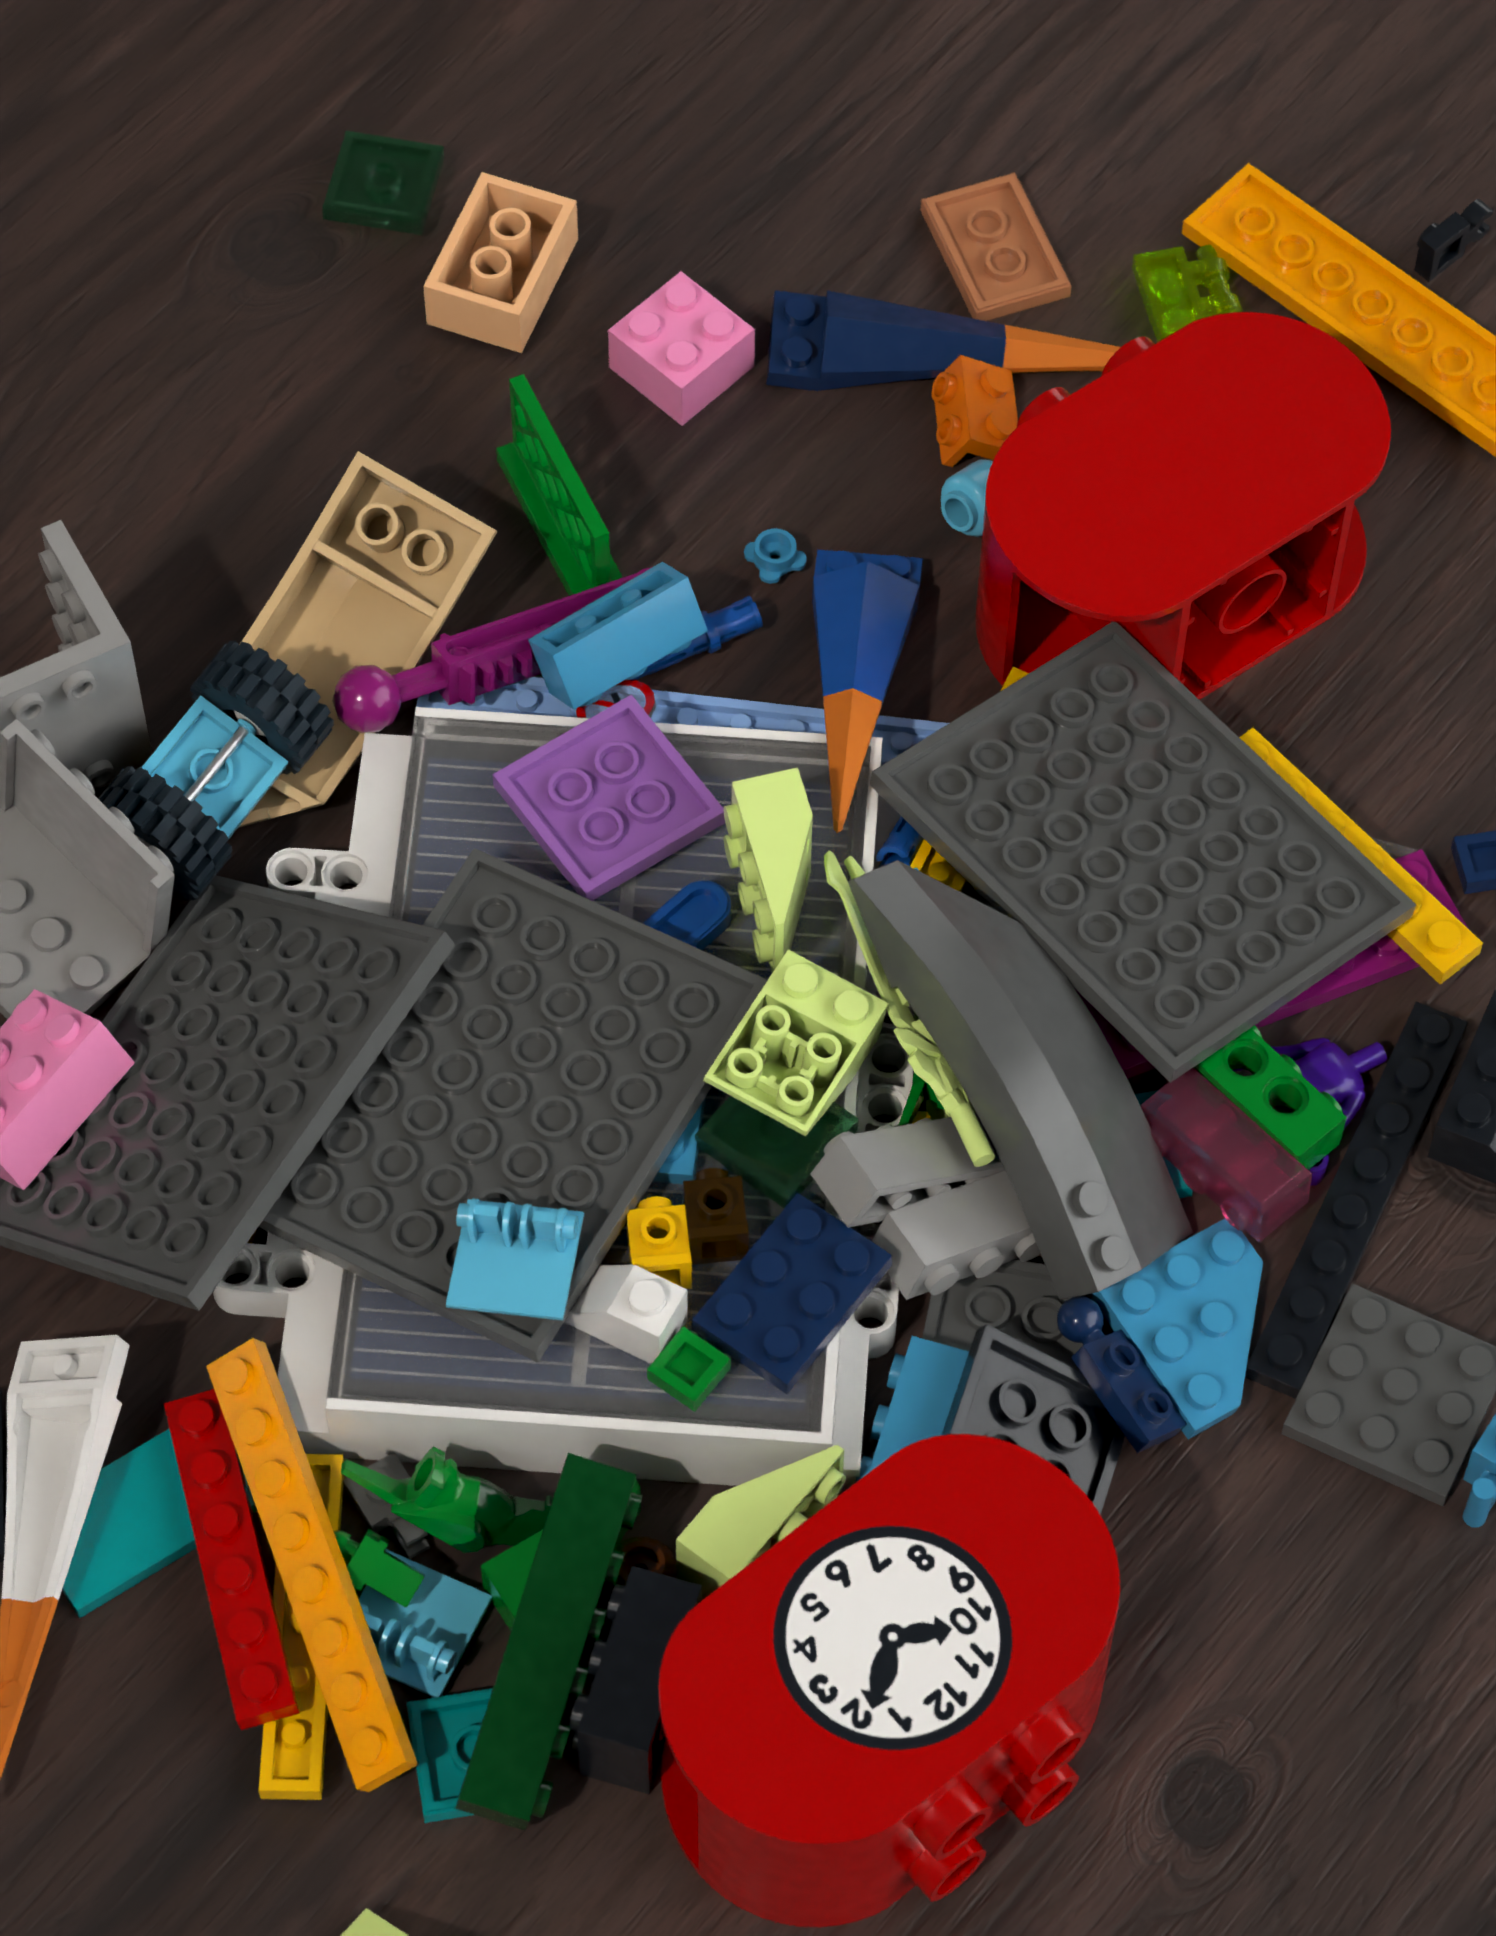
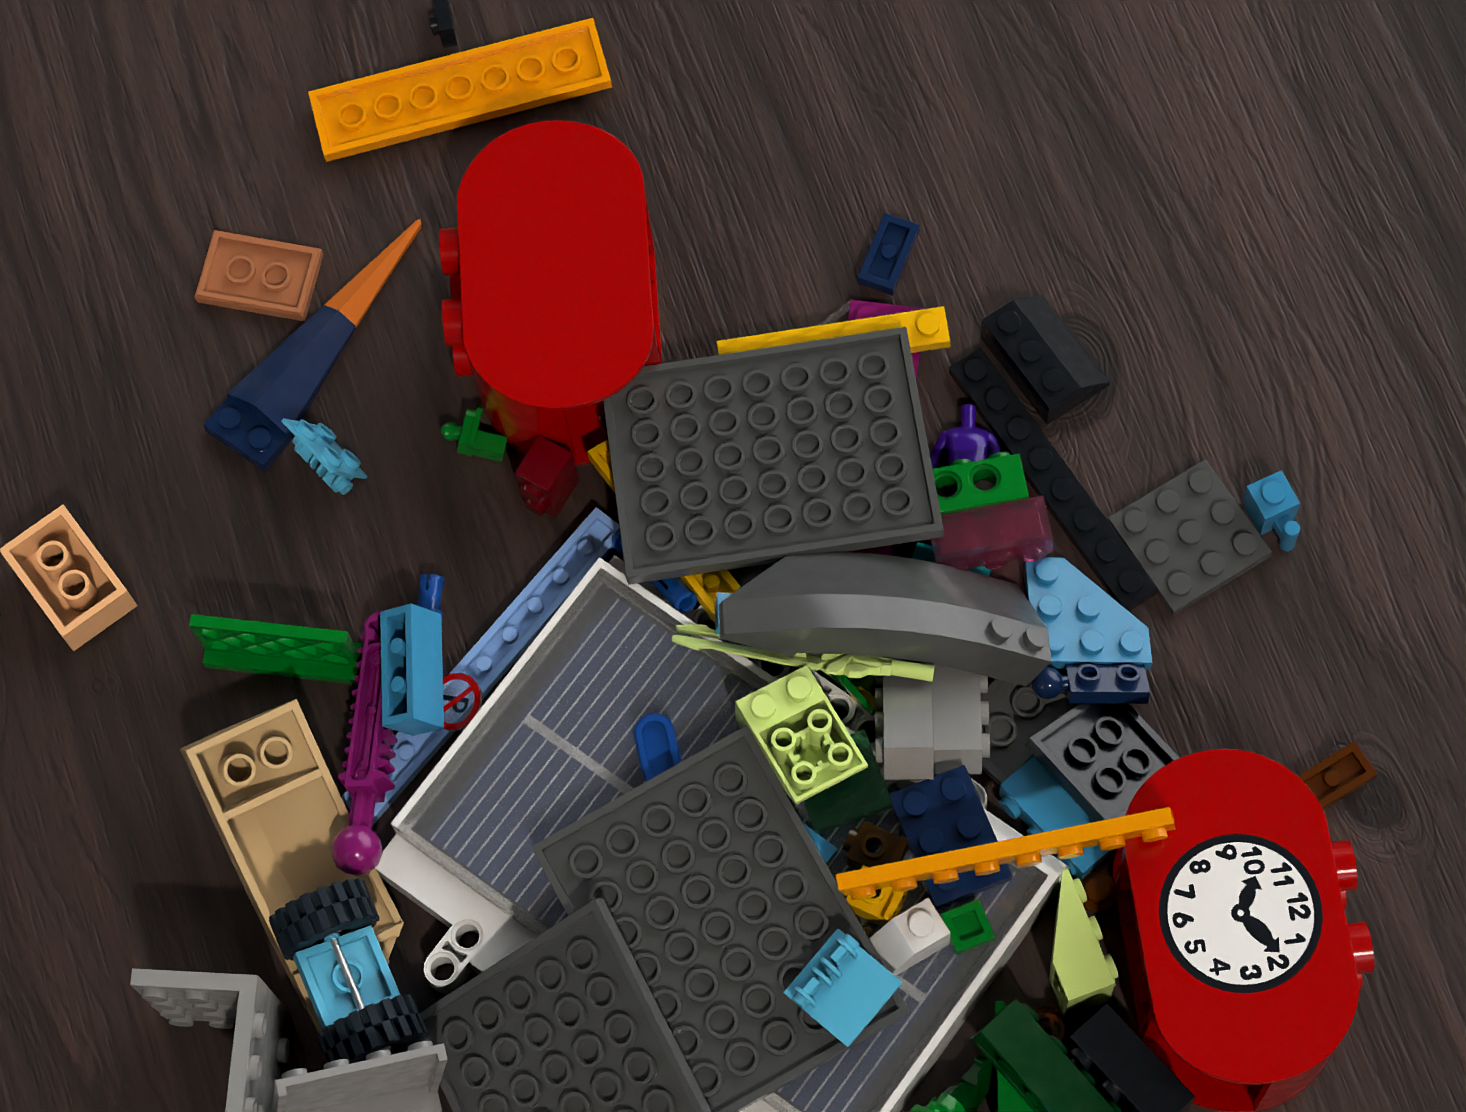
camera: 50 degrees left, 10 degrees up
(609, 798) = (542, 745): medium lavender plate -> none
(681, 348) = (209, 506): bright pink brick -> none
(772, 543) = (393, 531): dark azure plate -> none
(772, 847) = (655, 668): yellowish green slope -> none
(802, 1340) = (1023, 850): none -> light orange plate
(824, 419) = (319, 449): none -> medium azure hinge
(861, 625) = (486, 516): blue plate -> none
(950, 559) = (473, 440): none -> green piece
(951, 647) = (546, 477): none -> dark red brick
(965, 498) = (442, 396): medium azure head -> none
(973, 409) = (376, 361): orange bracket -> none
(1171, 292) = (373, 196): clear neon green plate -> none
(1191, 1729) = (1339, 775): none -> reddish brown plate

